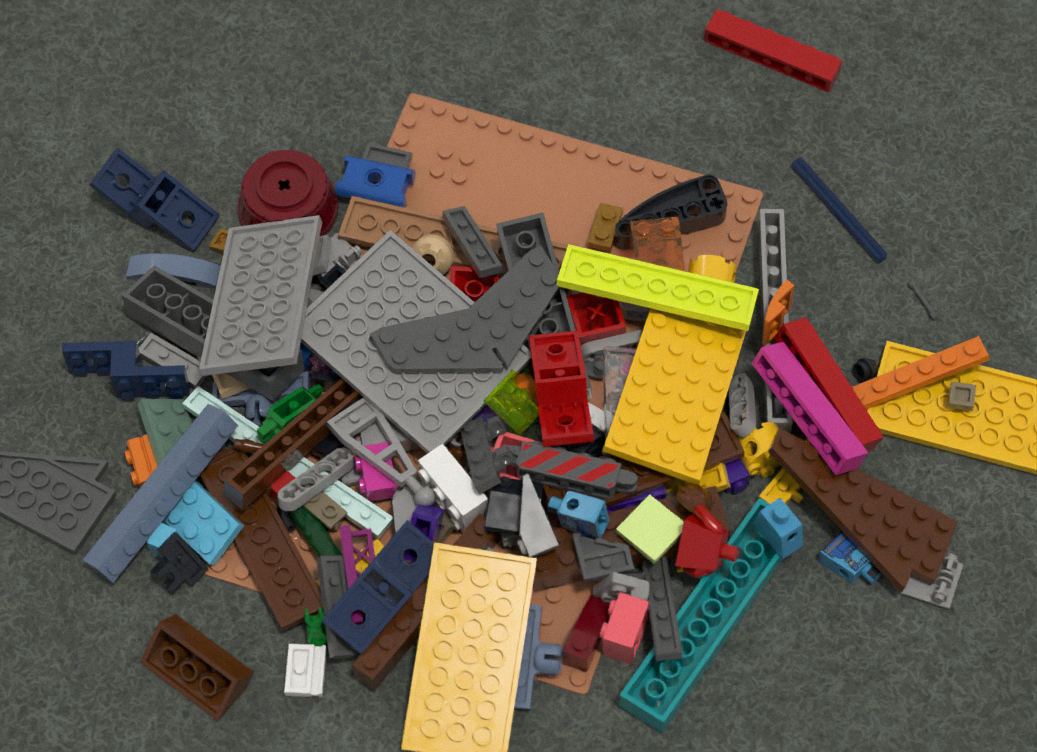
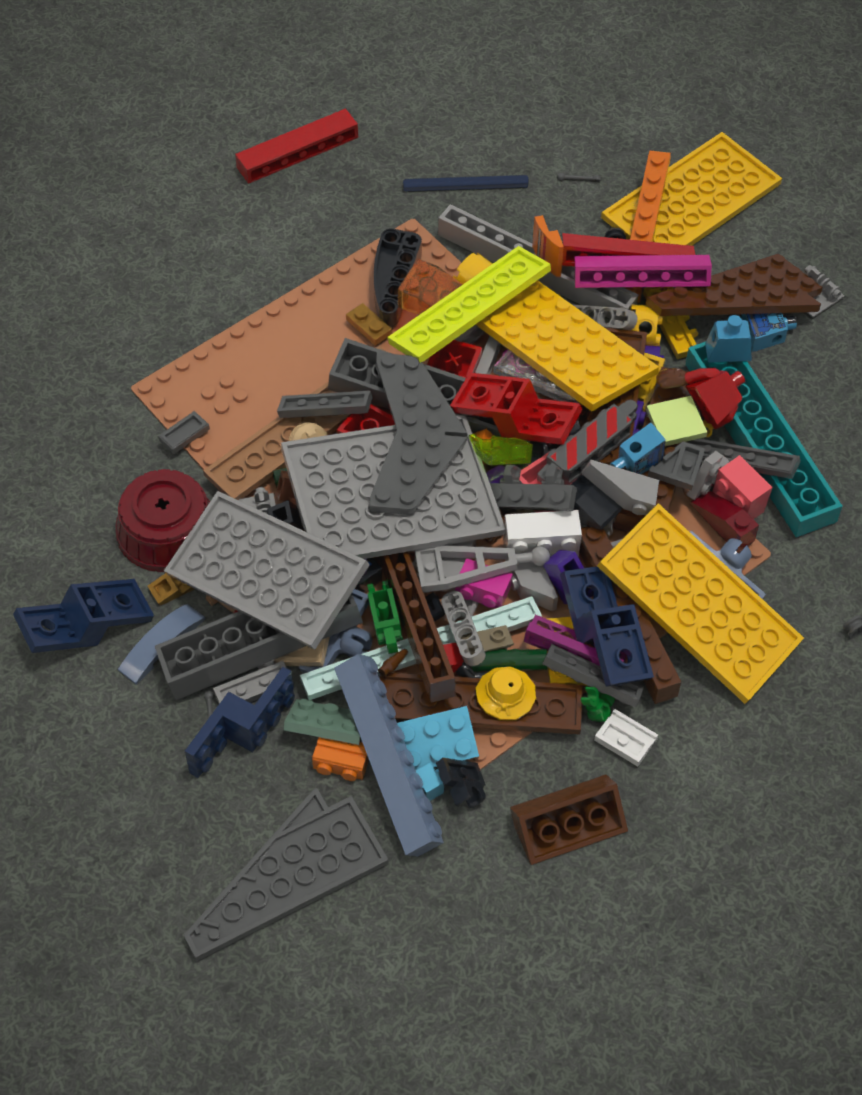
camera: 60 degrees left, 5 degrees down
(279, 559) = (504, 701): none -> yellow hat
(362, 173) = (187, 452): blue piece -> none
(961, 396) = (683, 192): dark tan plate -> none

